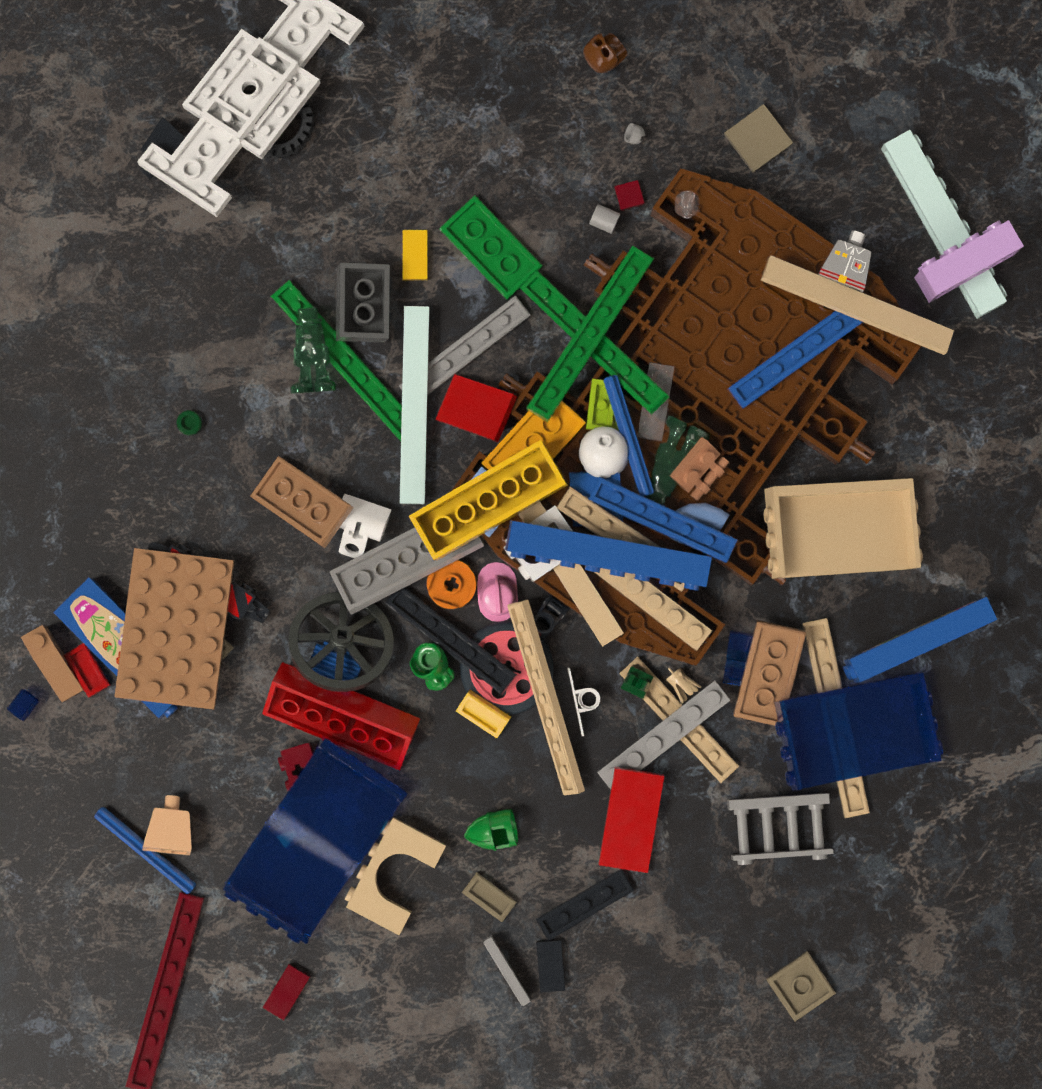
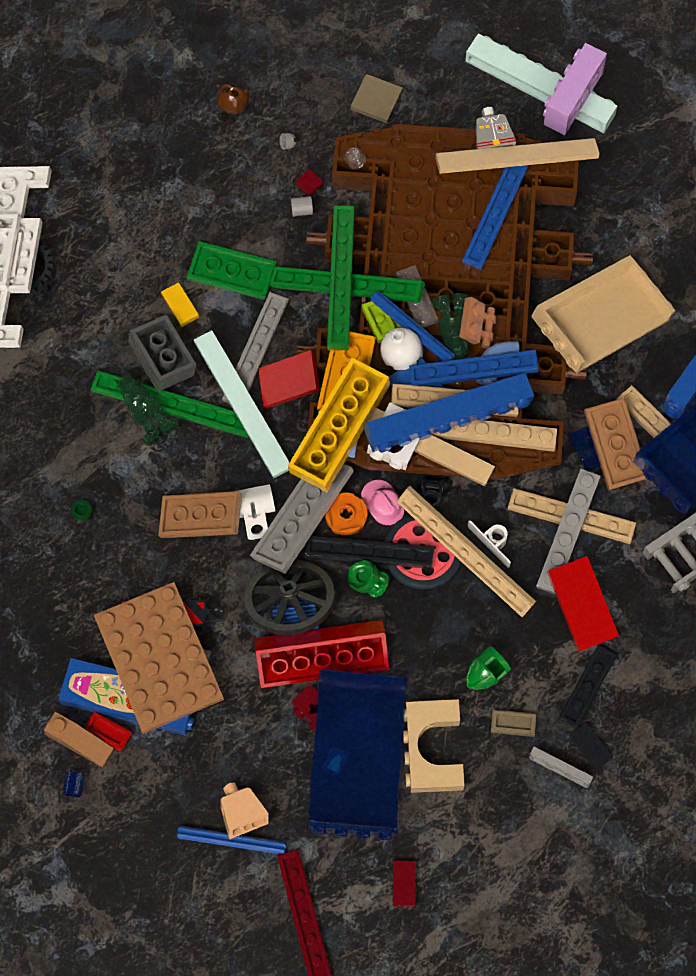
camera: 30 degrees left, 15 degrees down
(483, 713) = (426, 592): yellow tile -> none
(636, 682) = (524, 504): dark green tile -> none
(682, 682) = (553, 484): tan piece -> none

